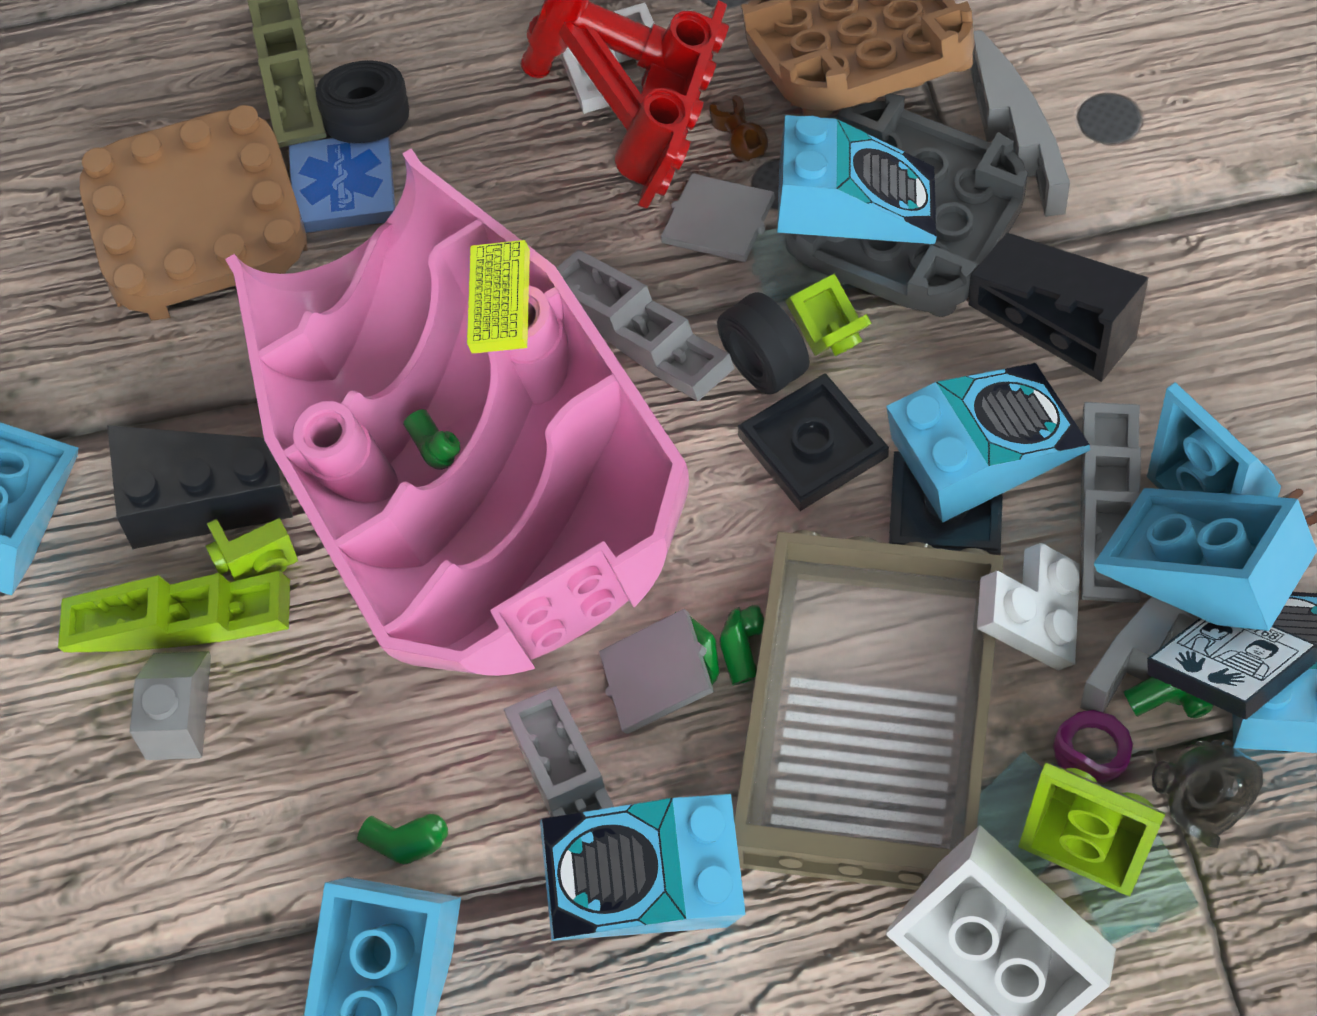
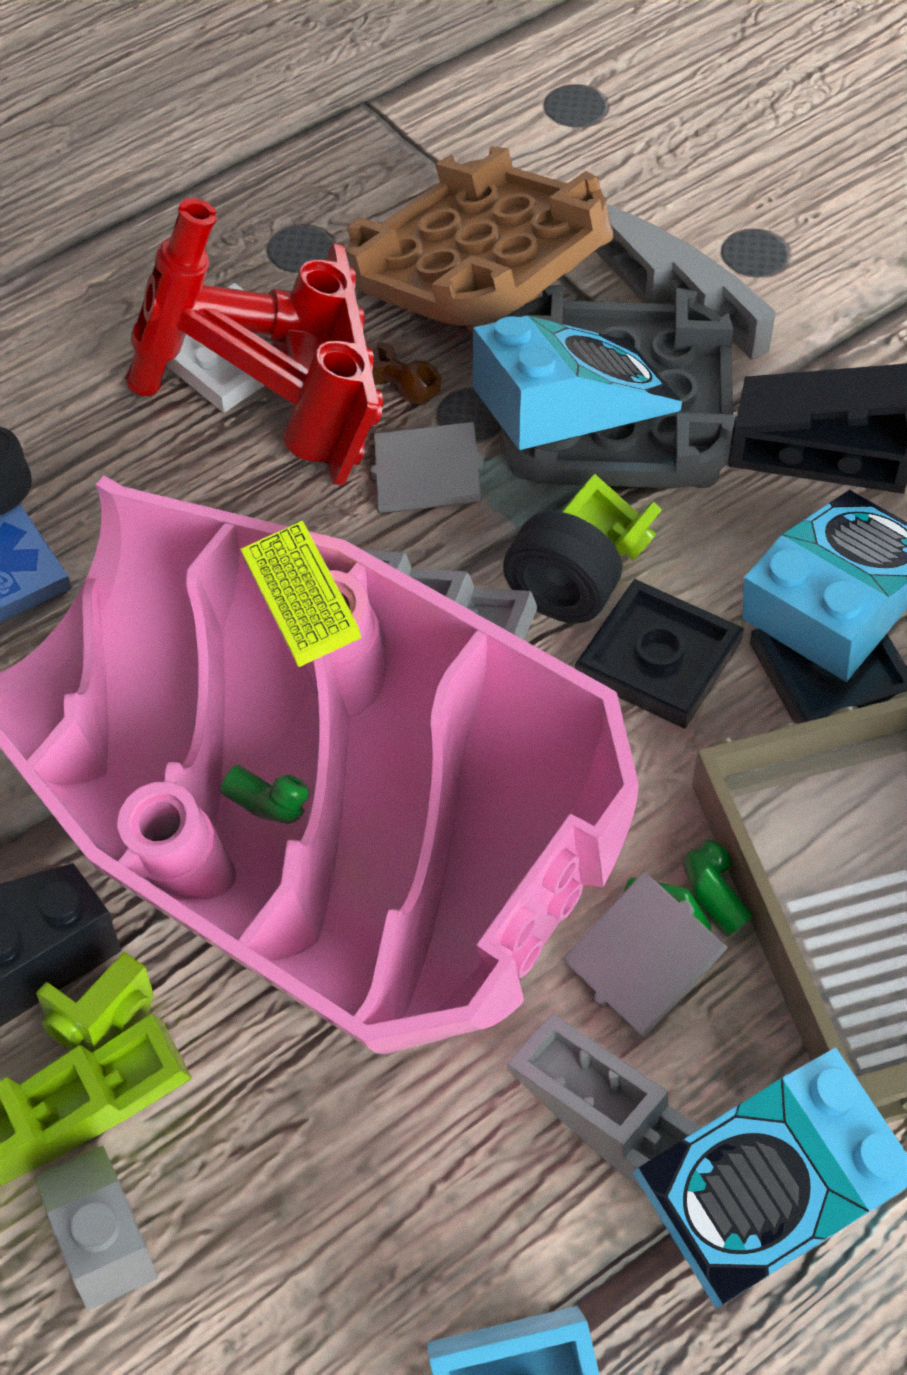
camera: 30 degrees left, 5 degrees down
(406, 842) = (469, 1270): green arm -> none

